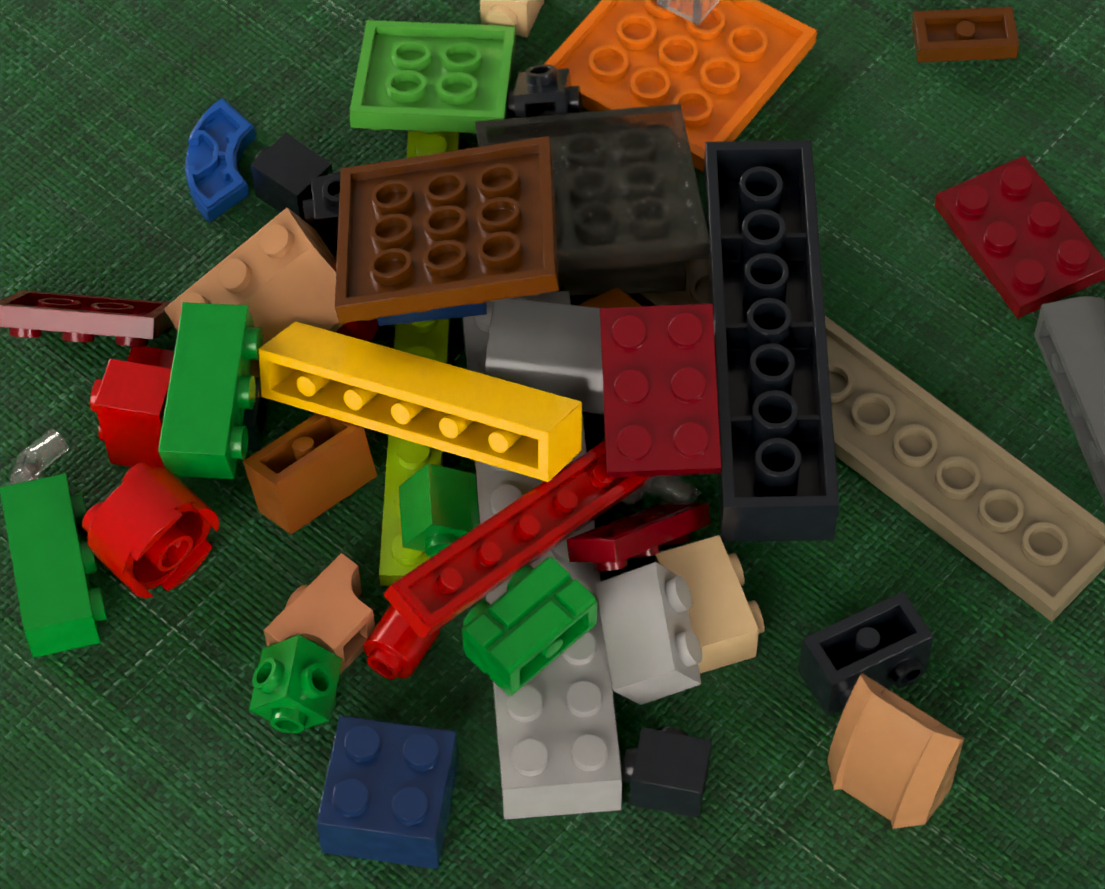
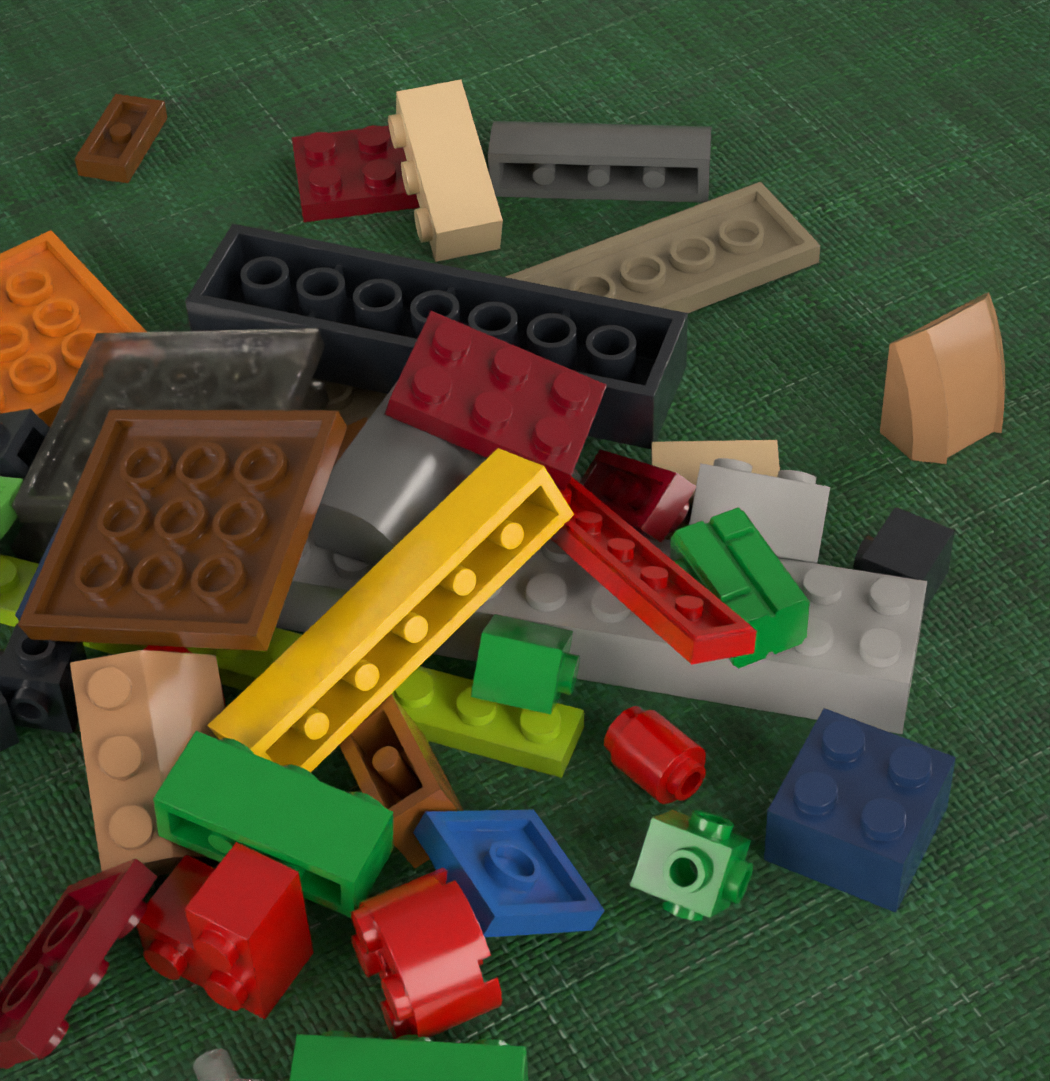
camera: 70 degrees left, 10 degrees down
(248, 563) = (509, 871): none -> blue plate
(327, 613) = (602, 819): nougat brick -> none
(881, 642) = (828, 377): black brick -> none
(1004, 280) = (446, 171): none -> tan brick

